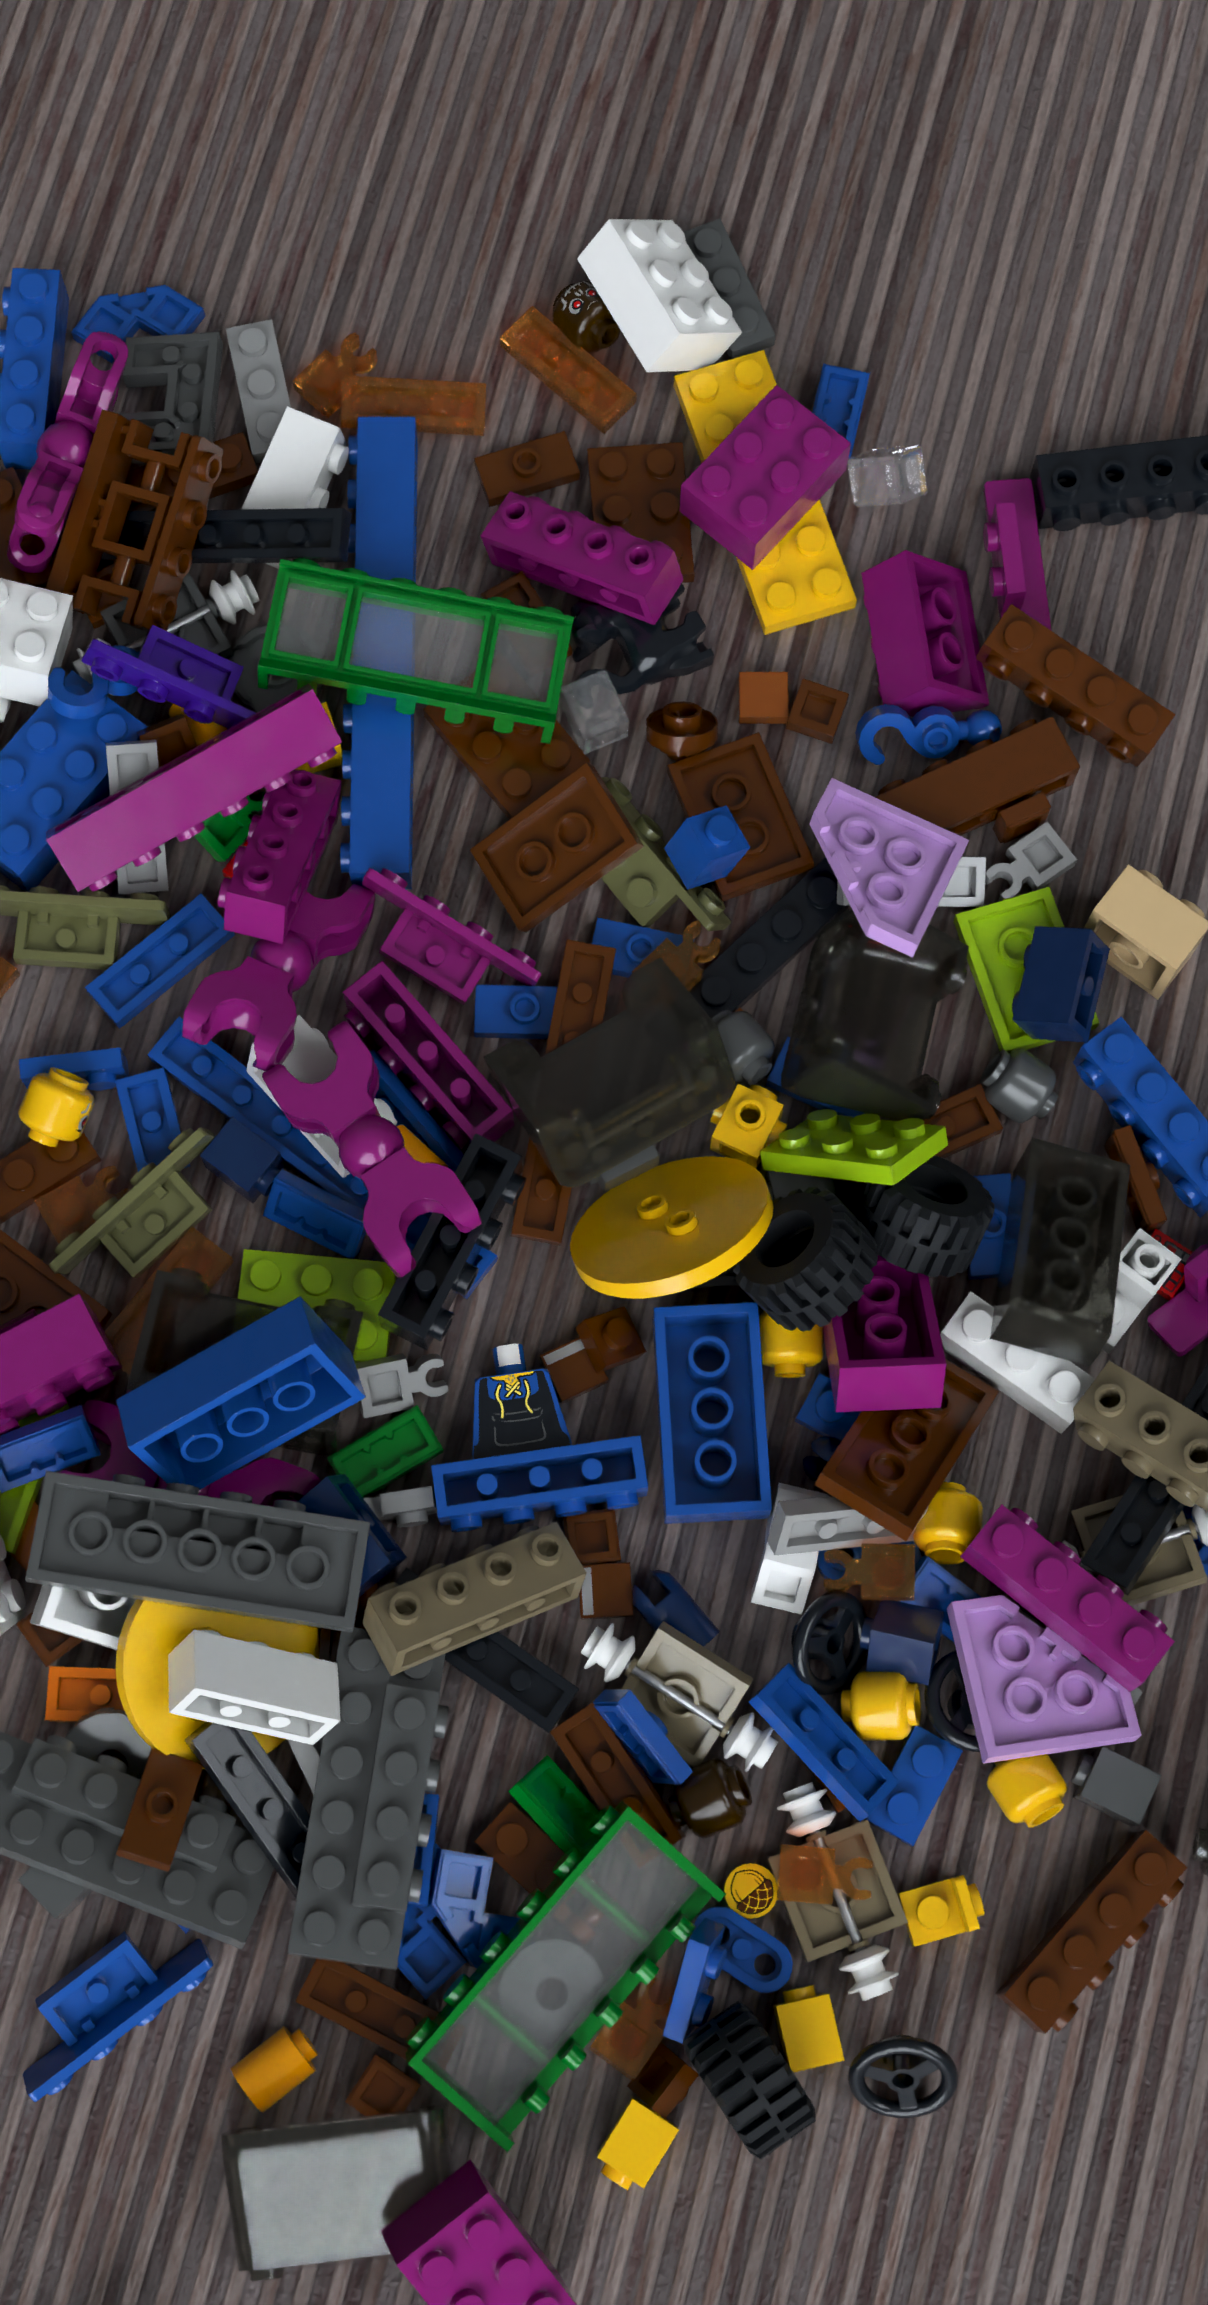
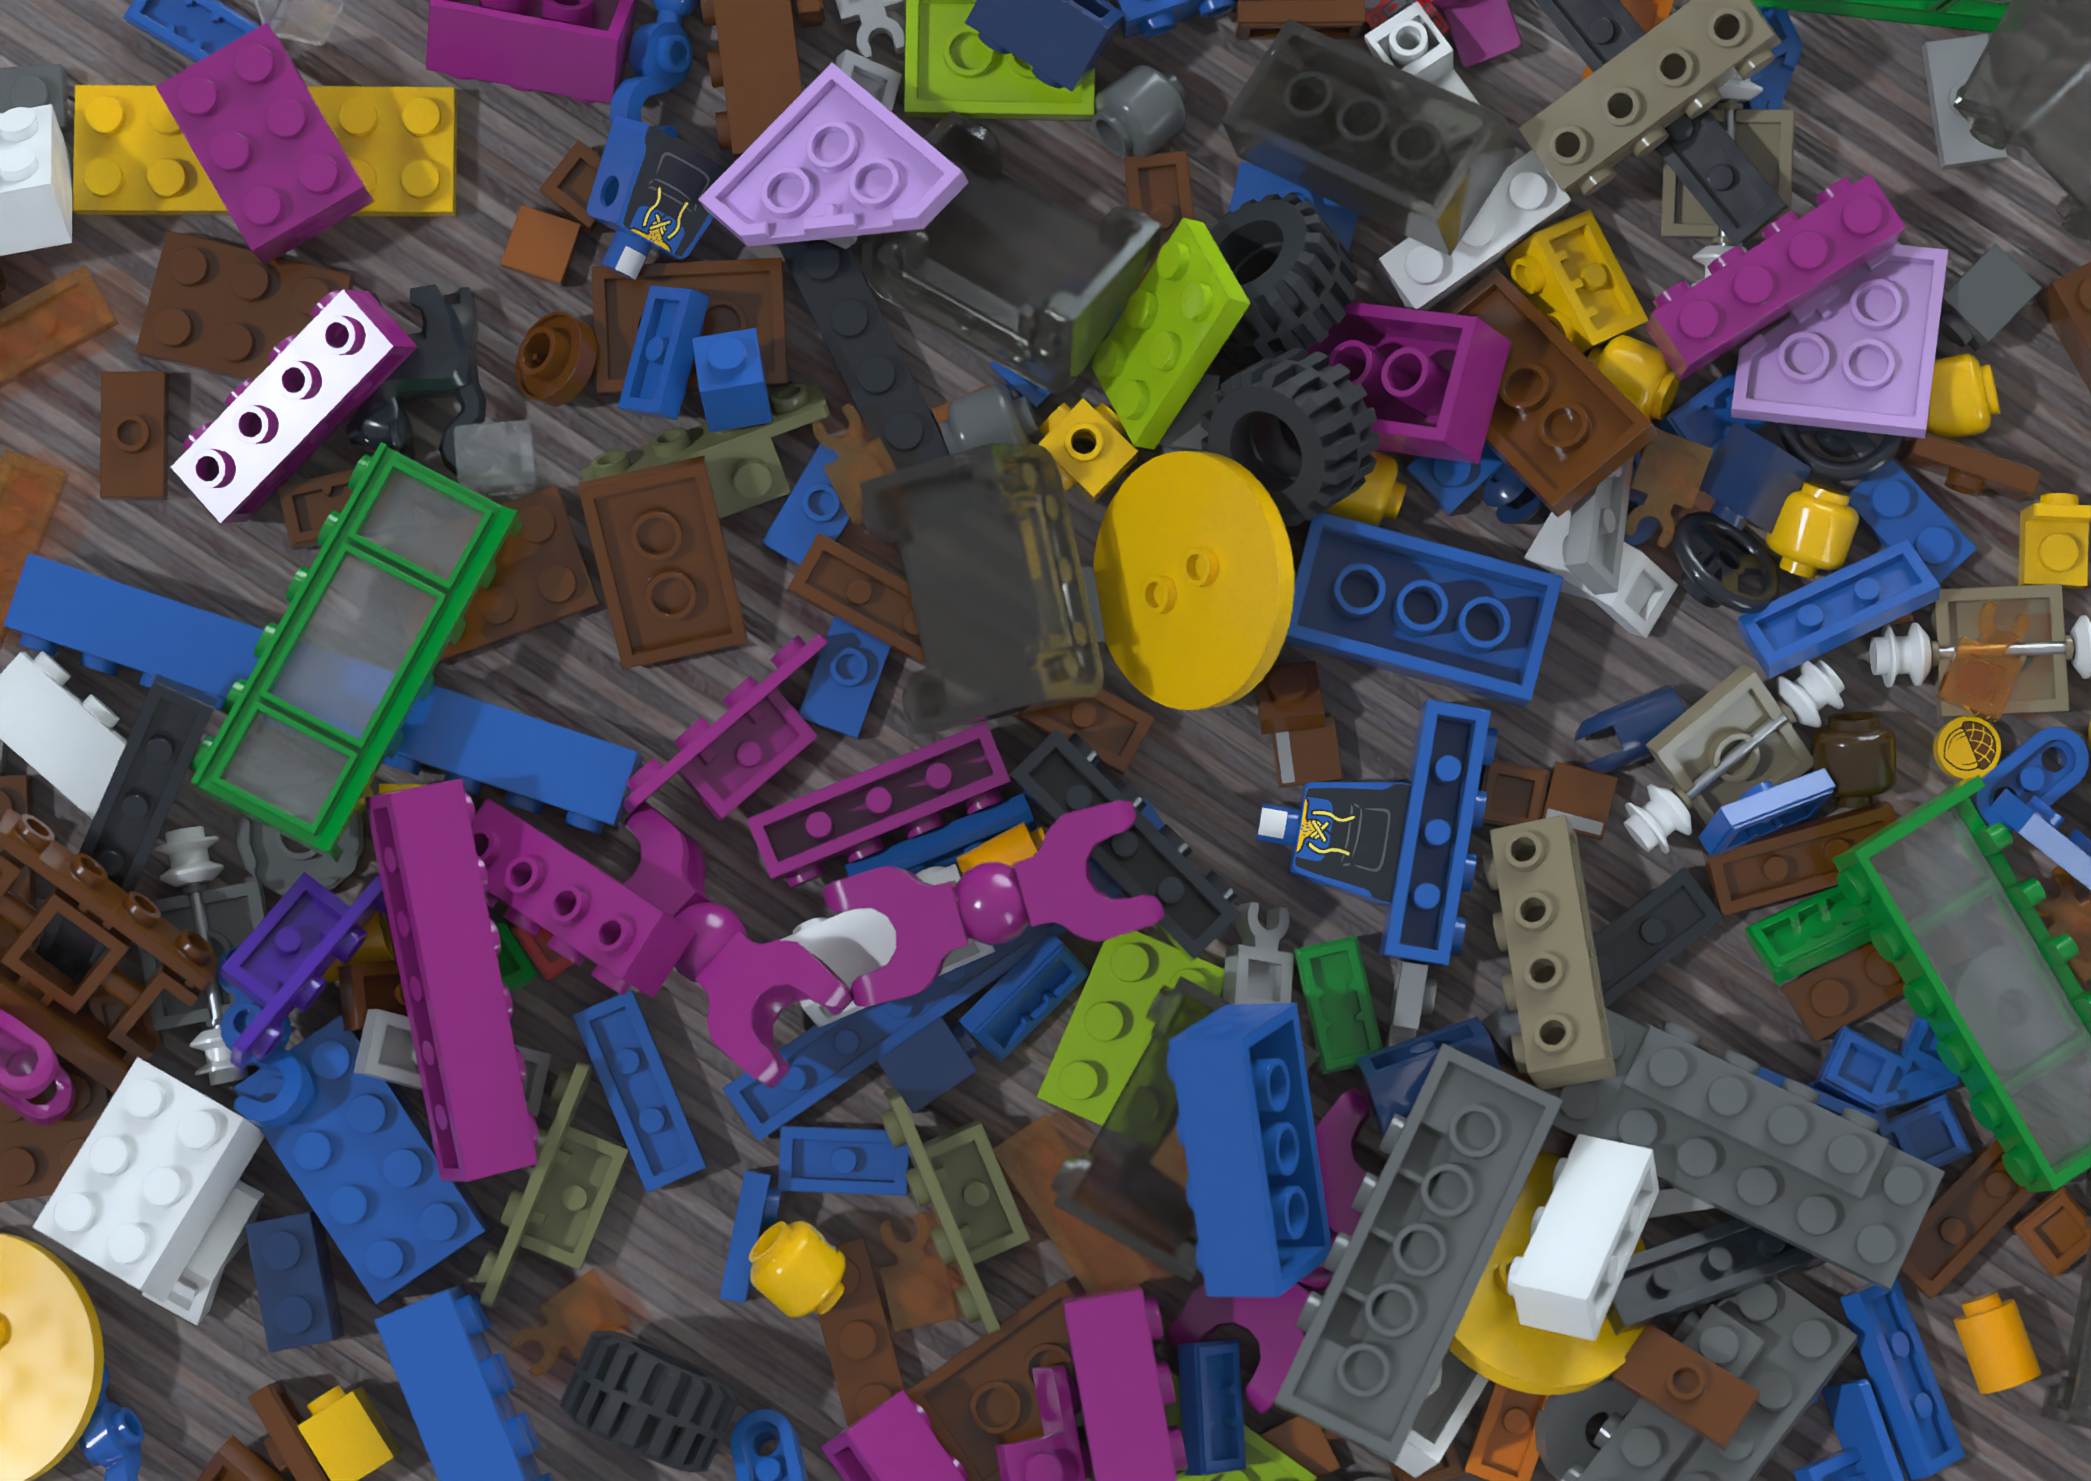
camera: 75 degrees left, 10 degrees up
(224, 1998) = (1903, 1379): none -> blue plate
(693, 796) = (663, 352): none -> blue plate
(822, 747) = (649, 195): none -> torso
(973, 1817) = (1970, 469): none -> reddish brown plate
(1009, 1456) = (1576, 282): none -> yellow bracket

